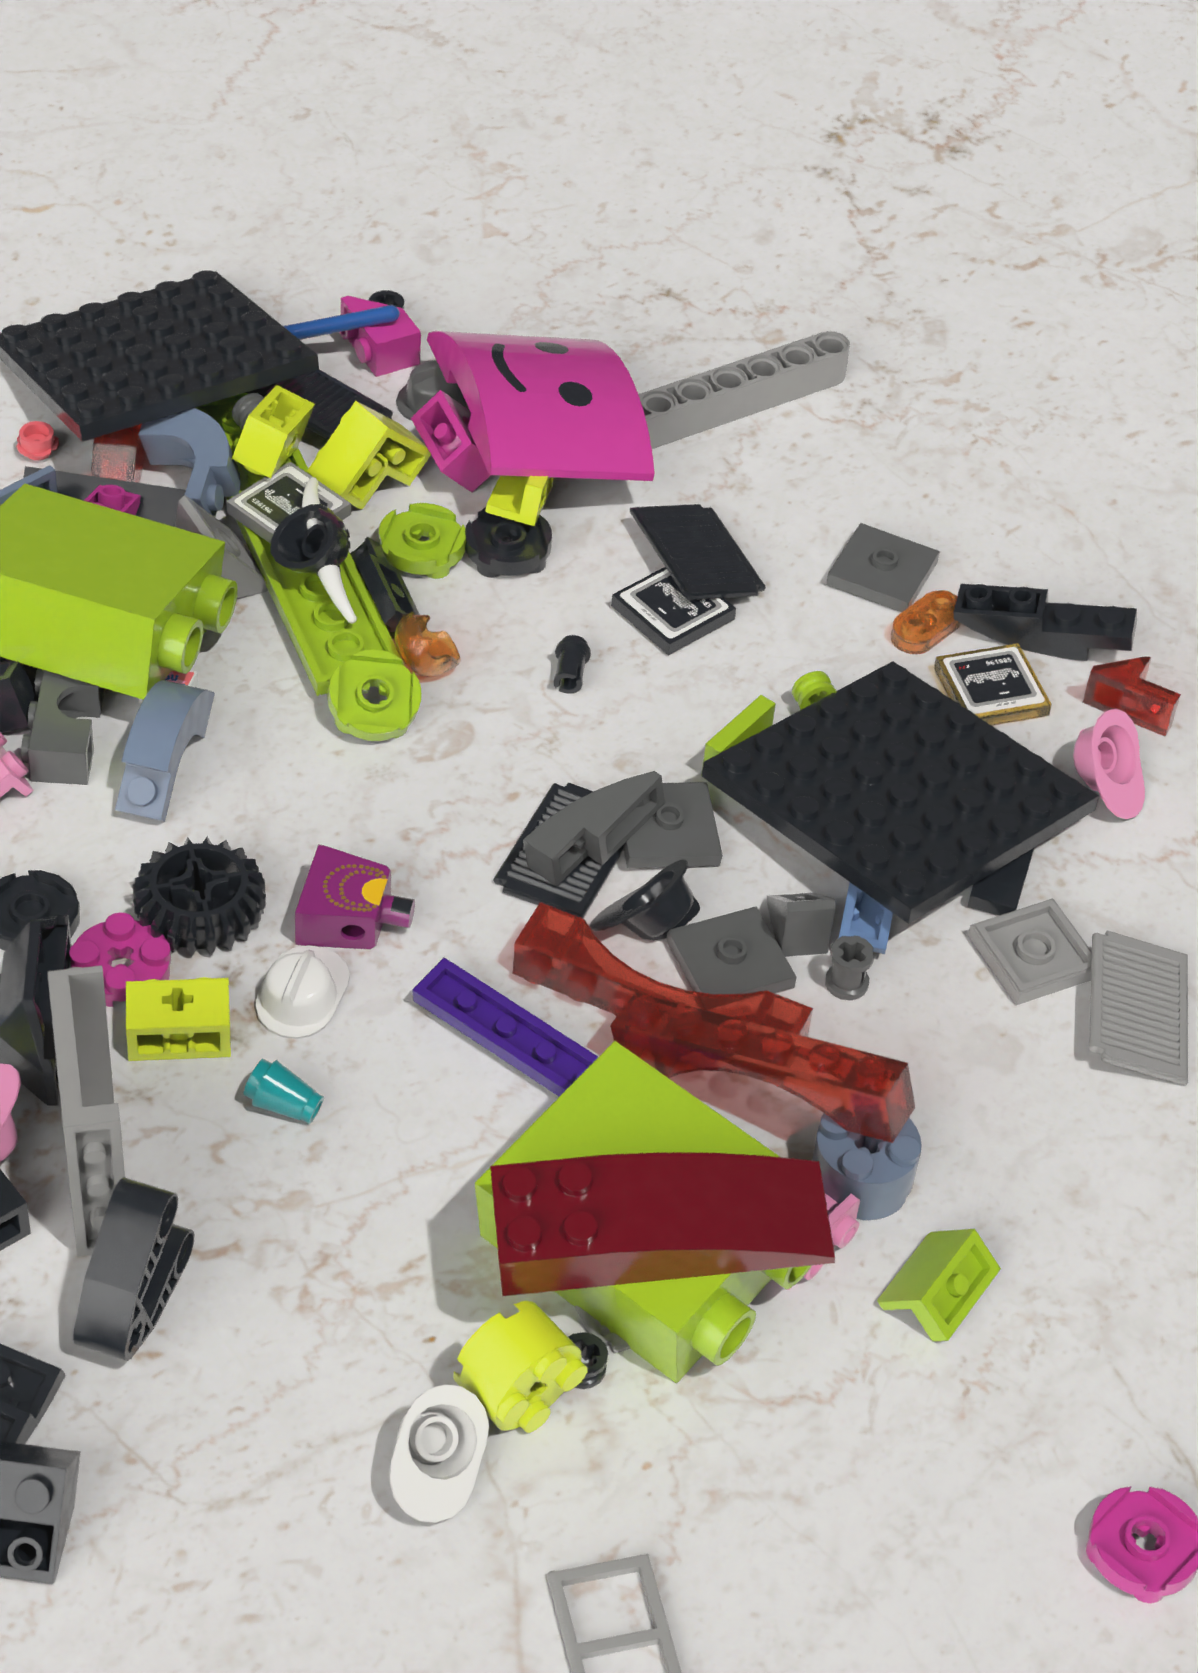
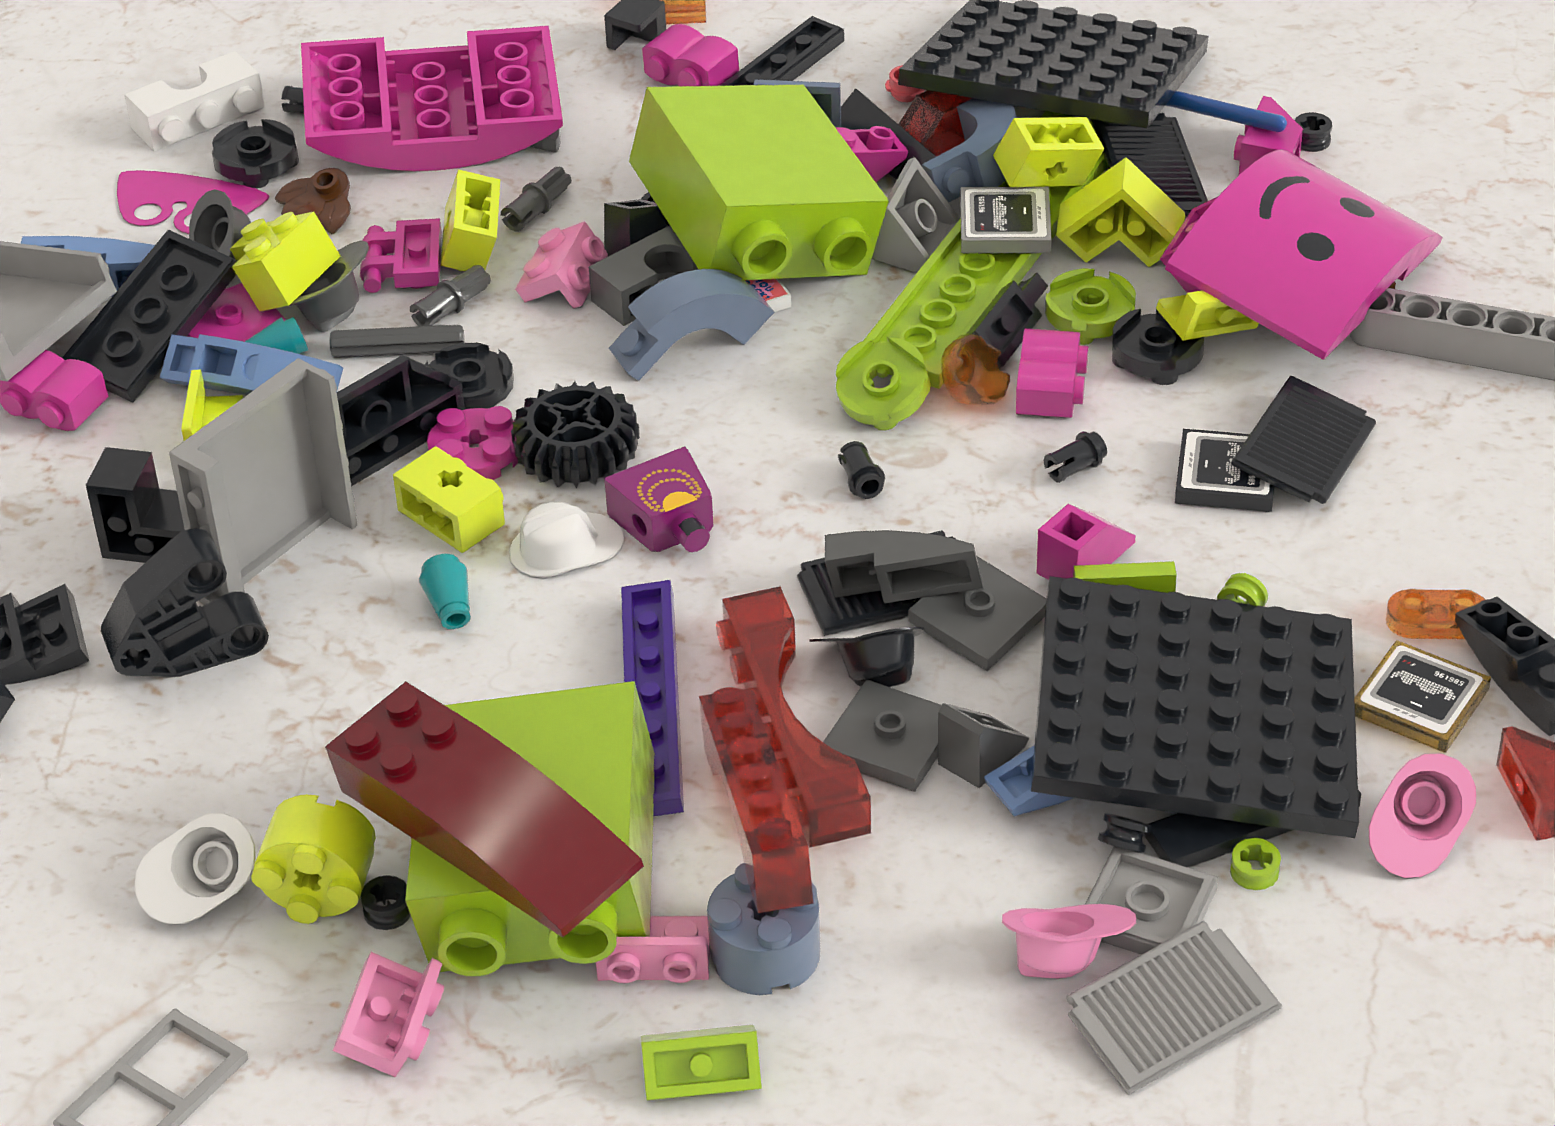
camera: 55 degrees right, 5 degrees down
(315, 543) = (973, 250): black helmet -> none
(443, 776) = (864, 476): none -> black pin
(471, 611) = (1049, 373): none -> dark pink brick
(678, 730) = (1077, 539): none -> dark pink slope
(718, 1430) = (388, 1014): none -> bright pink bracket
(850, 961) = (974, 789): dark grey bush -> none
(883, 568) = (1460, 550): dark grey plate -> none
(969, 911) = (1124, 832): none -> black bush
(1039, 1004) = (1065, 938): none -> bright pink piece
(1052, 862) = (1268, 858): none -> lime bush

